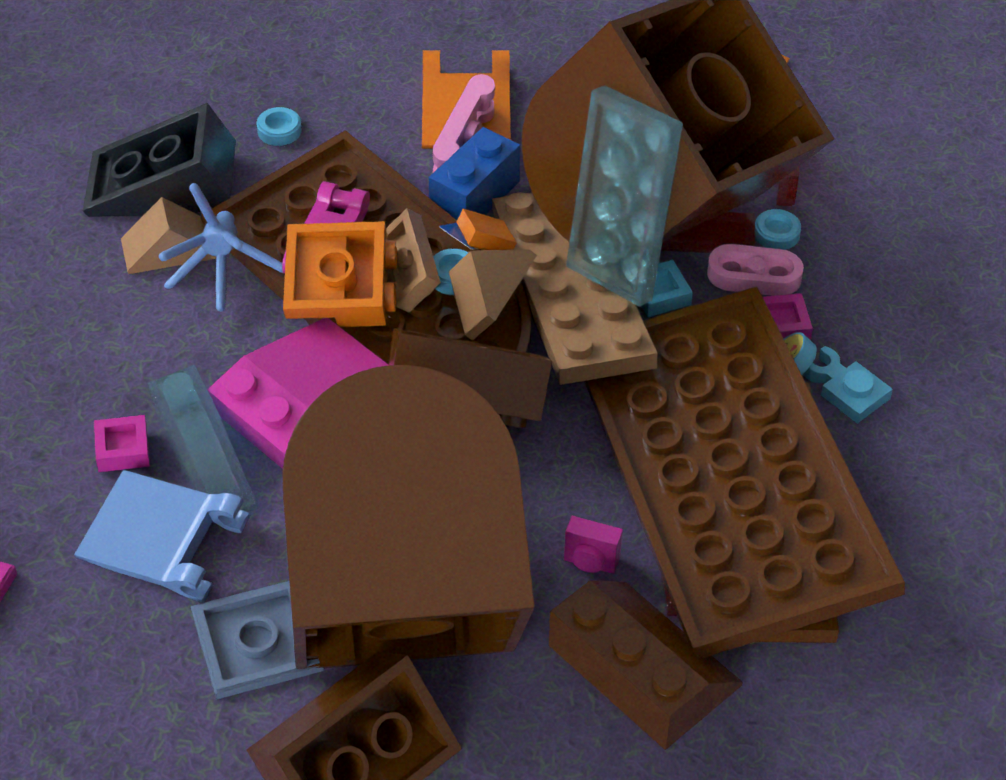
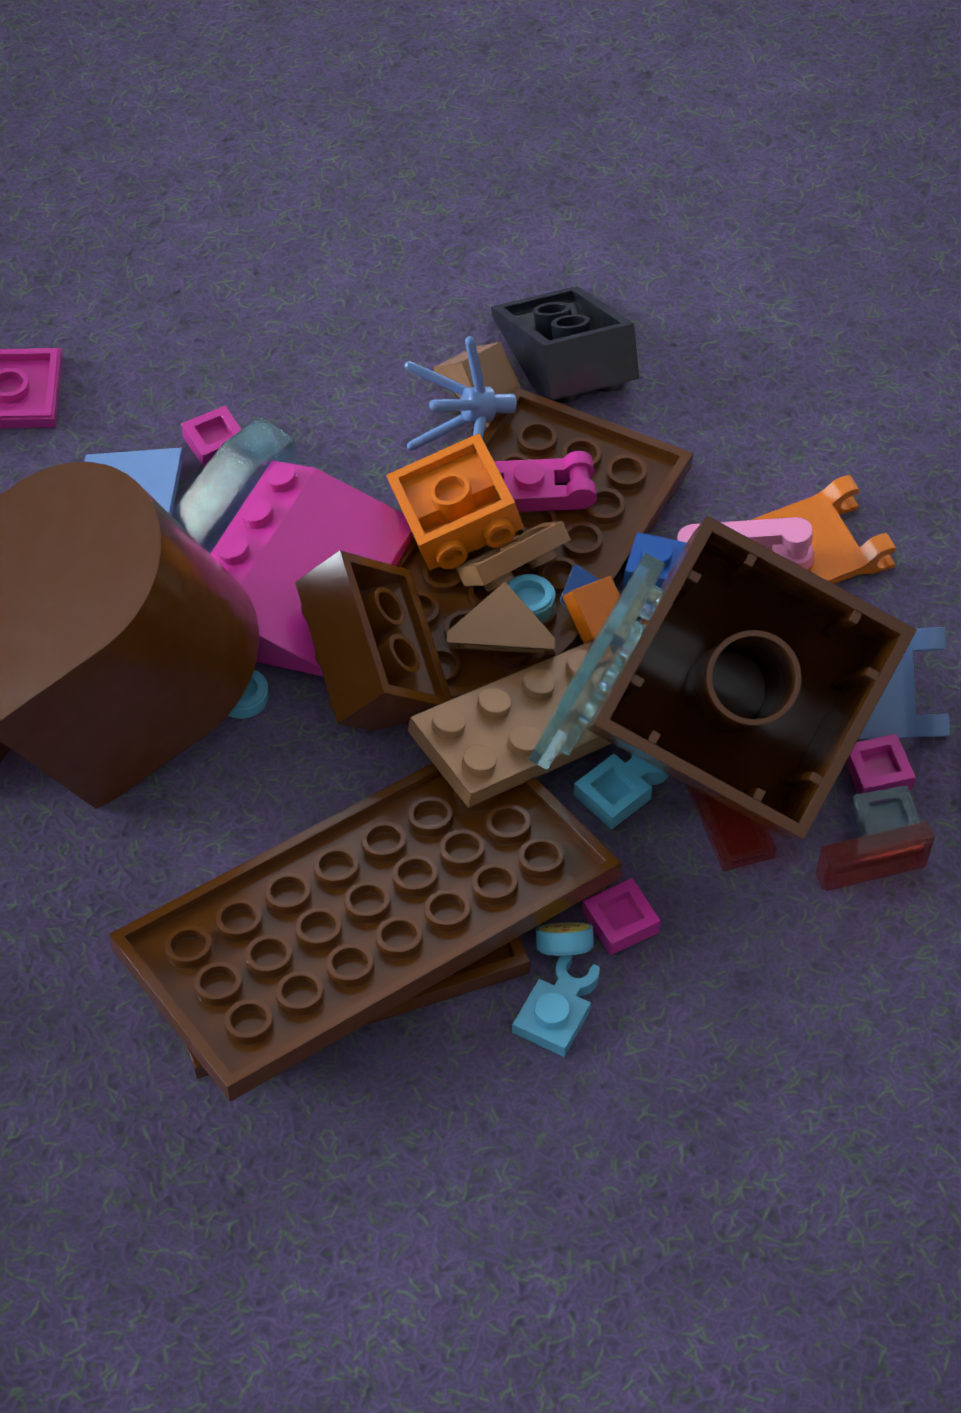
camera: 70 degrees right, 5 degrees up
(279, 126) = (688, 407): medium azure tile -> none
(592, 545) = (223, 826): dark pink plate -> none
(638, 659) = (104, 881): reddish brown slope -> none
(744, 267) = (685, 875): bright pink plate -> none
(777, 229) = (769, 881): medium azure tile -> none

